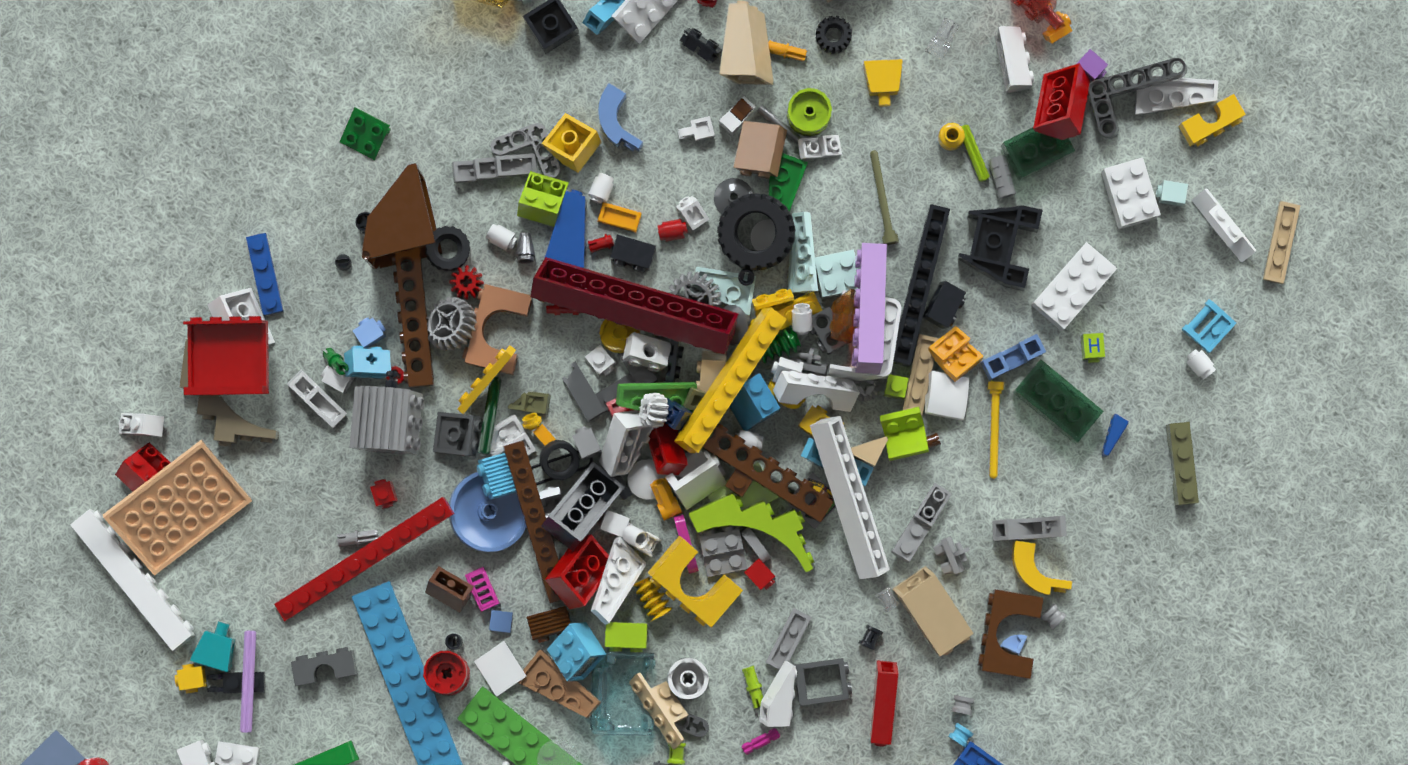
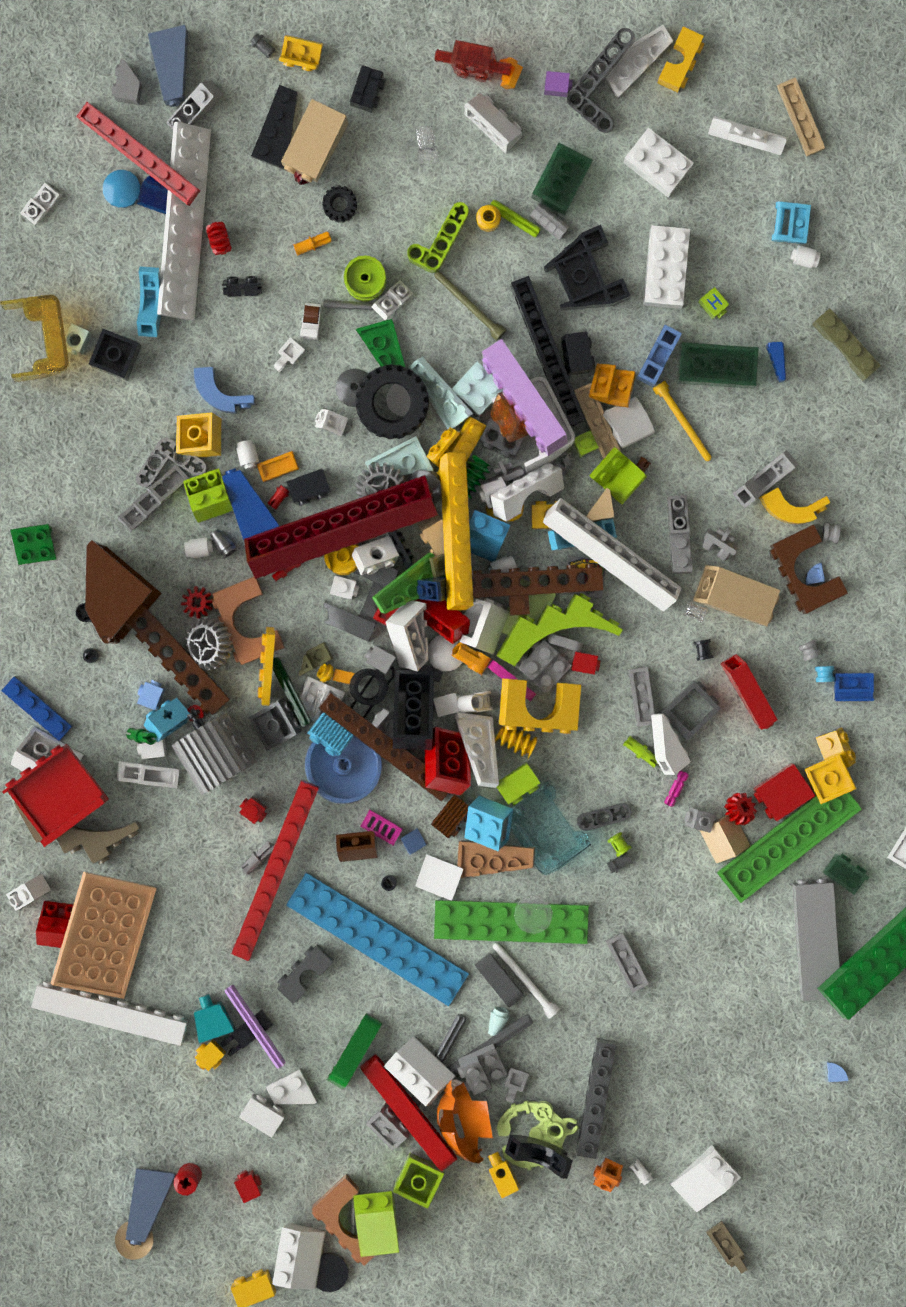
camera: 40 degrees left, 5 degrees up
(435, 676) = (395, 920): red wheel -> none
(452, 263) = (177, 581): black tyre -> none
(653, 410) = (414, 597): white gear -> none
(662, 707) = (583, 817): tan bracket -> none
(672, 230) = (326, 447): red brick -> none
(676, 678) = (593, 790): white brick -> none
(746, 46) = (279, 262): tan slope -> none
(750, 277) = (413, 440): black hinge -> none
(760, 149) = (348, 335): medium nougat brick -> none
(802, 318) = (476, 443): white brick -> none
(883, 79) = (403, 211): yellow torso -> none
(901, 124) = (442, 236): none -> lime beam
(1062, 102) = (556, 129): red slope -> none
(1172, 193) = (690, 139): light aqua brick -> none

